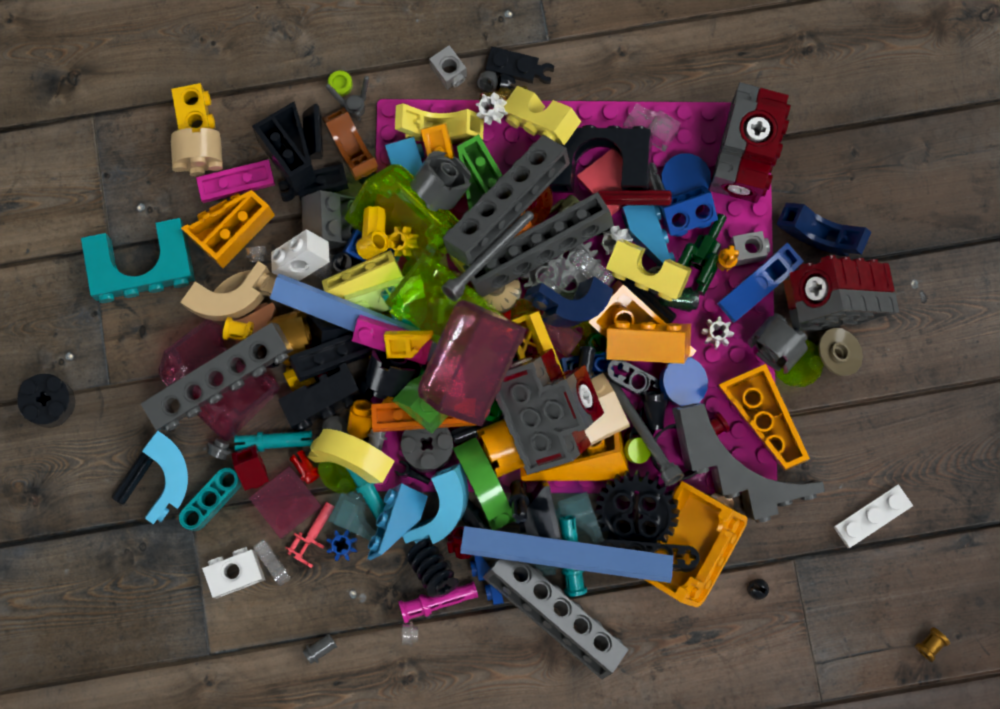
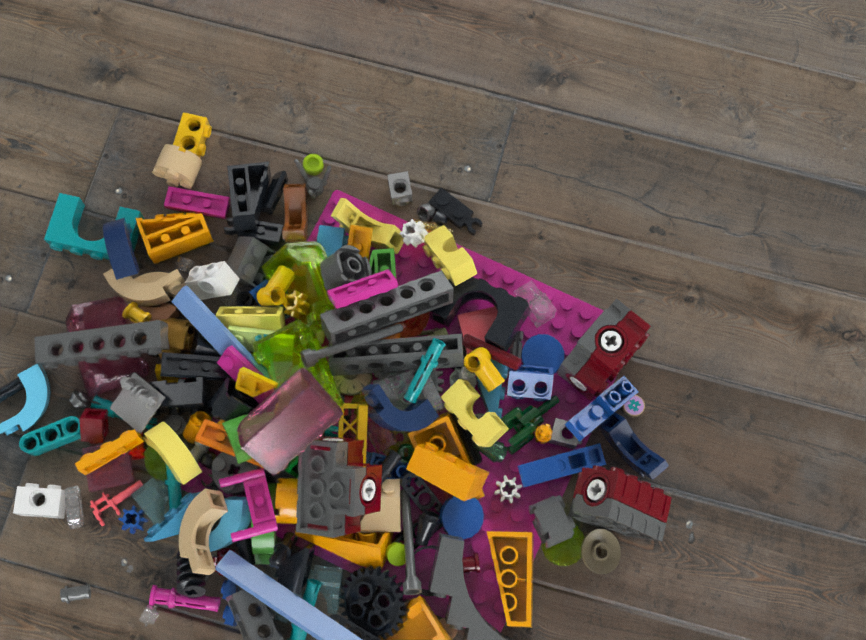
camera: 25 degrees right, 5 degrees down
(188, 266) = (120, 248): none -> dark blue arch
(282, 486) = (109, 451): none -> light orange plate
(285, 421) = (137, 402): none -> light grey hinge
(392, 447) = (207, 459): none -> black hinge
(419, 522) = (196, 528): none -> tan arch
(471, 463) = (258, 502): none -> dark pink plate
(472, 191) = (362, 289): none -> dark pink plate
(576, 275) = (435, 348): none -> teal pin
(639, 219) = (485, 369): none -> yellow piece
(775, 204) = (601, 408): none -> blue slope
(802, 188) = (634, 407): none -> tile

